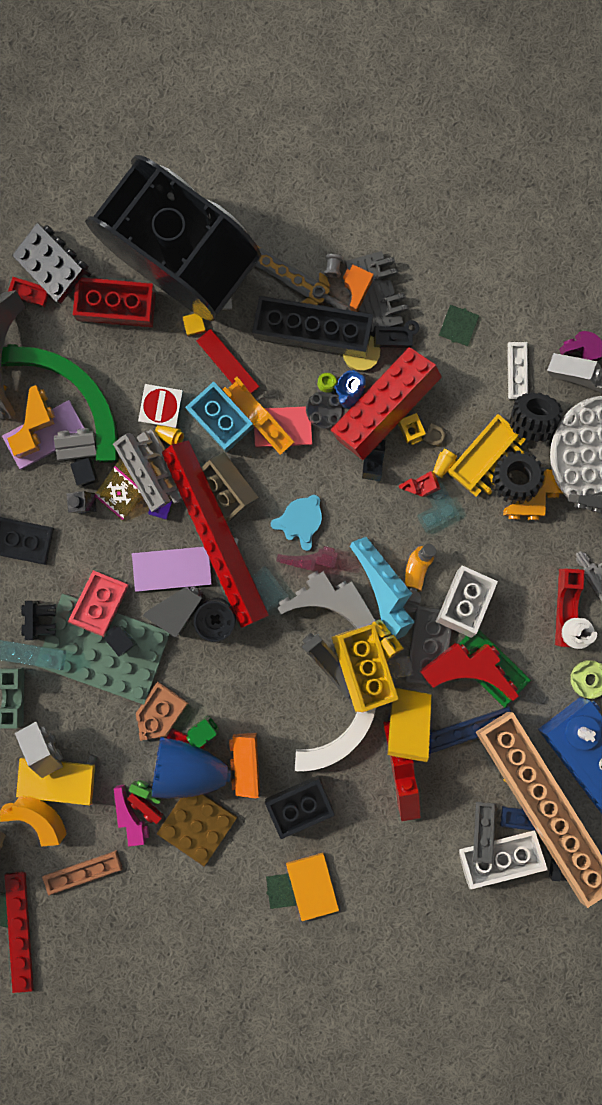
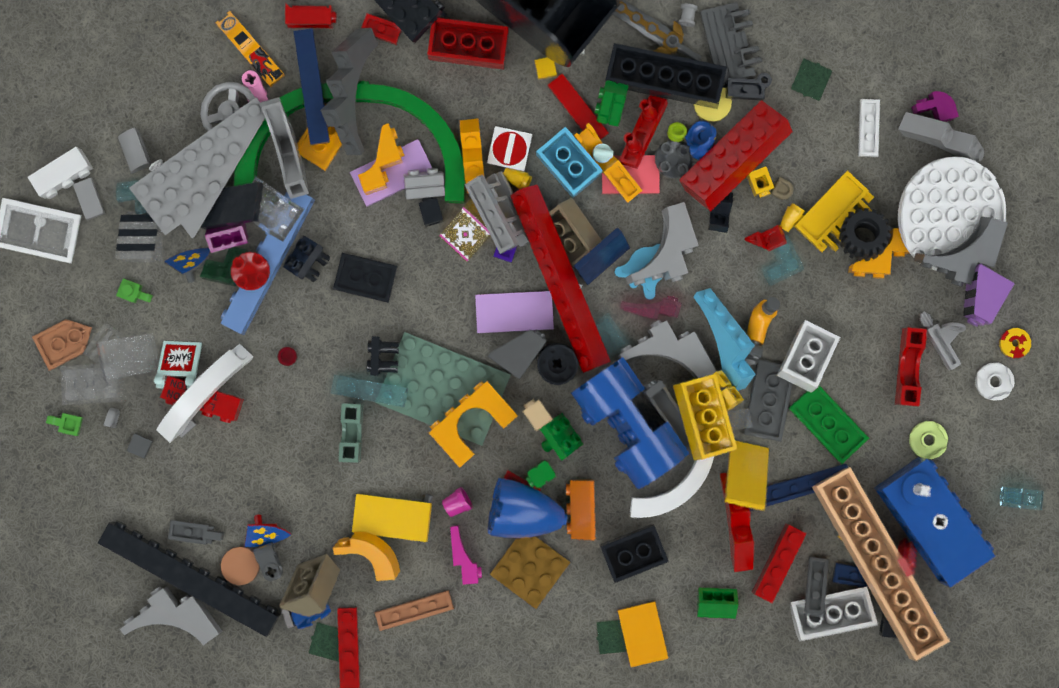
camera: 10 degrees right, 0 degrees up
(39, 749) = (380, 484): light grey brick -> none
(81, 502) = (428, 242): black brick -> none
(98, 603) = (441, 343): coral tile -> none
(106, 693) = (446, 431): none -> light orange arch
(119, 640) = (462, 380): black brick -> none
(121, 763) = (457, 502): none -> dark pink piece
(122, 409) = (471, 149): none -> light orange arch
(141, 789) = (477, 529): bright green plate -> none
(150, 812) = (473, 542): red plate -> none
(159, 712) = (497, 454): nougat tile -> none
(195, 672) = (536, 414): none -> tan brick
(221, 693) = (560, 437): none -> green plate
(252, 406) = (602, 153): none -> light aqua plate
(256, 509) = (602, 256): none -> dark blue tile
(259, 356) = (612, 103): none -> green brick
(289, 391) = (639, 139): none -> red plate
(310, 705) = (648, 451): none -> blue cylinder
(330, 489) = (676, 241): none -> light grey arch
(358, 283) = (712, 33): orange arch -> none
(385, 852) = (717, 603): none -> green brick
(445, 810) = (779, 563): none -> red brick
(480, 665) = (819, 420): red arch -> none
(535, 416) = (885, 175): black tyre -> none
(573, 628) = (914, 385): white piece -> none
(574, 801) = (907, 557): none -> red plate

